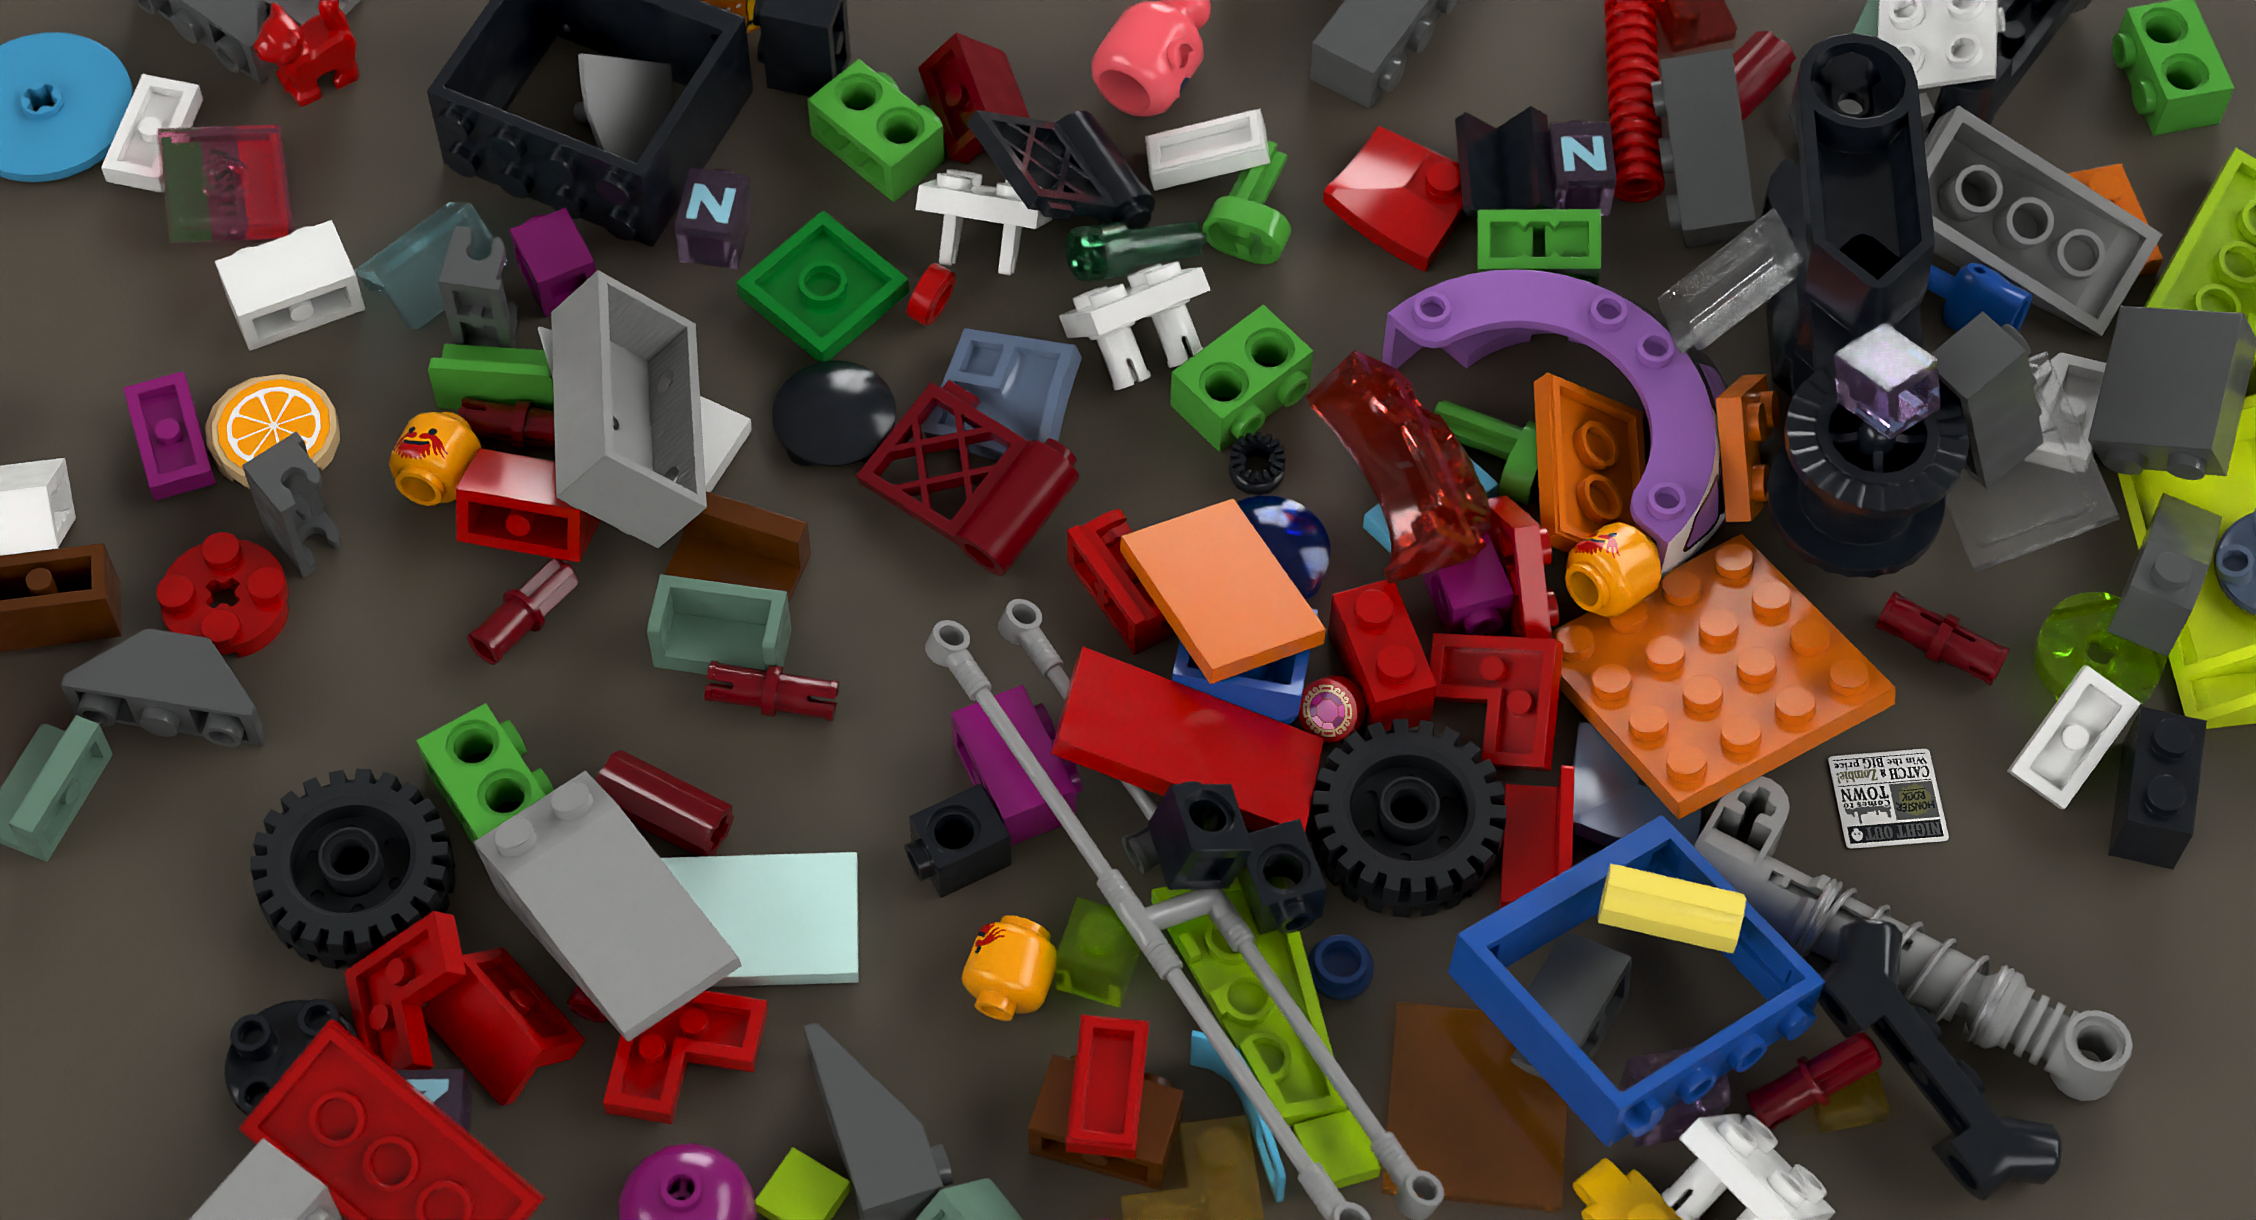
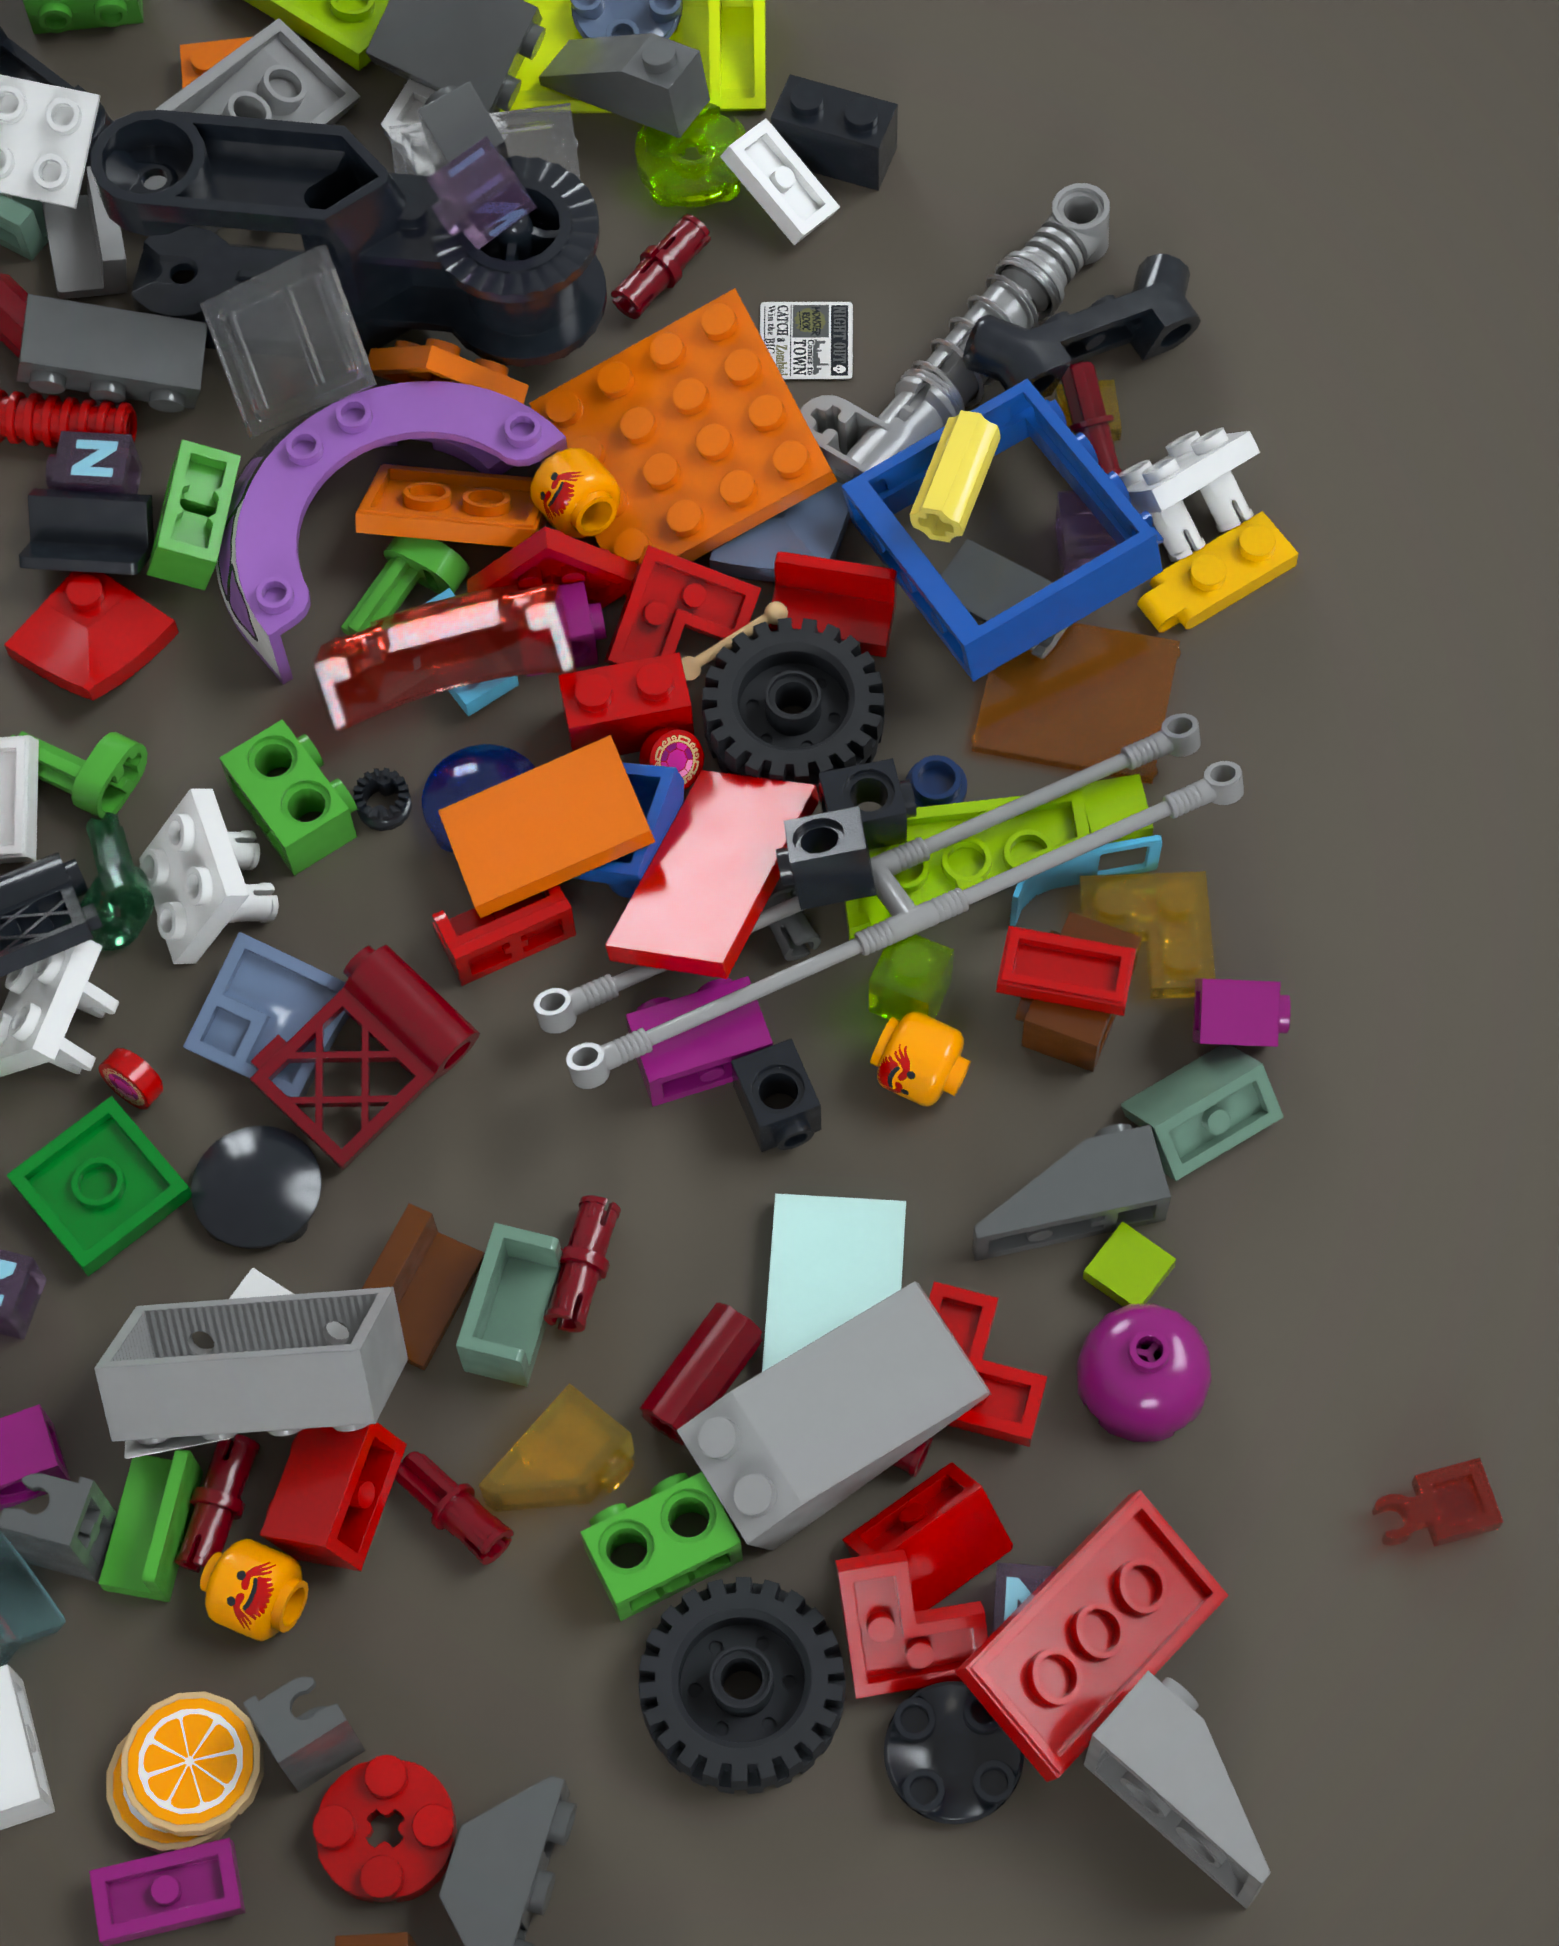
camera: 80 degrees left, 5 degrees up
(575, 693) = (561, 1458): none -> clear yellow slope
(1447, 715) = (692, 665): none -> tan hinge

